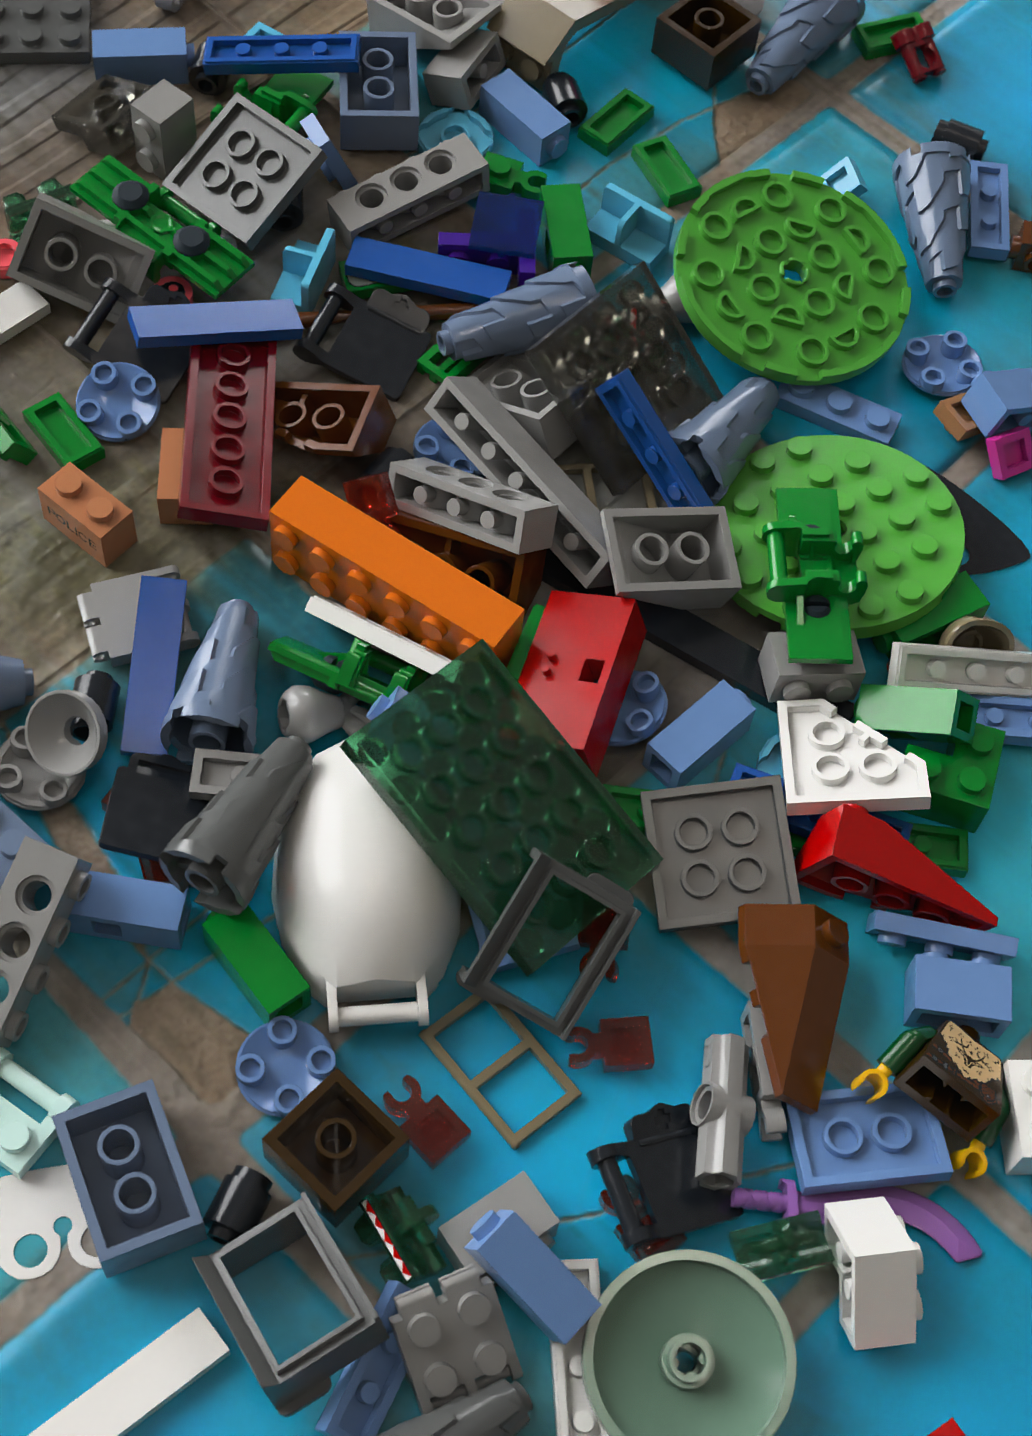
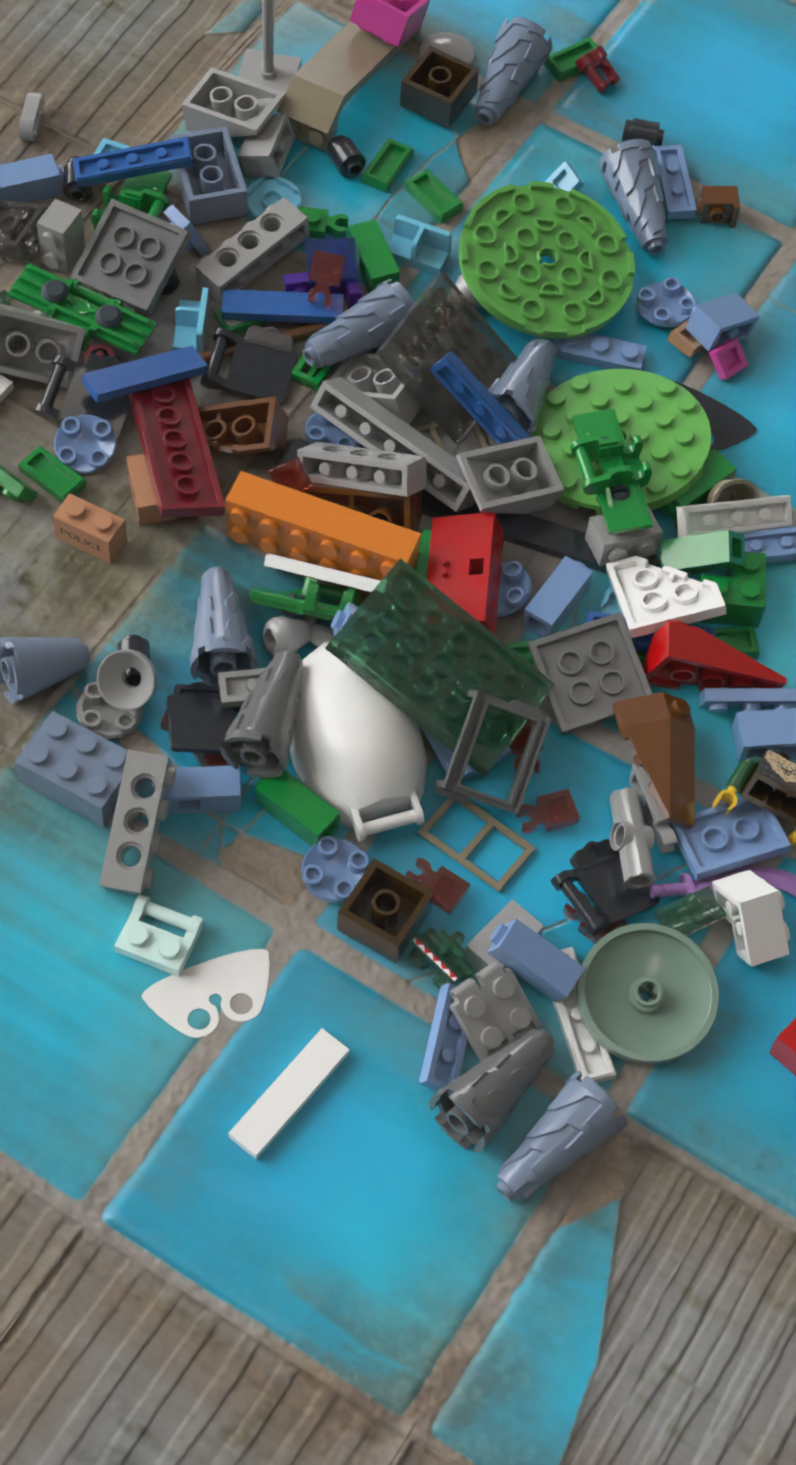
camera: 10 degrees left, 0 degrees up
(111, 615) = (143, 594): light grey plate -> none
(129, 1178) = (255, 956): sand blue brick -> none
(153, 663) = (169, 623): blue tile -> none
(237, 1204) = (330, 961): black brick -> none
(308, 1372) = (405, 1049): dark grey piece -> none
(493, 236) = (326, 271): none -> clear red plate
(524, 117) = (320, 175): medium blue brick -> none

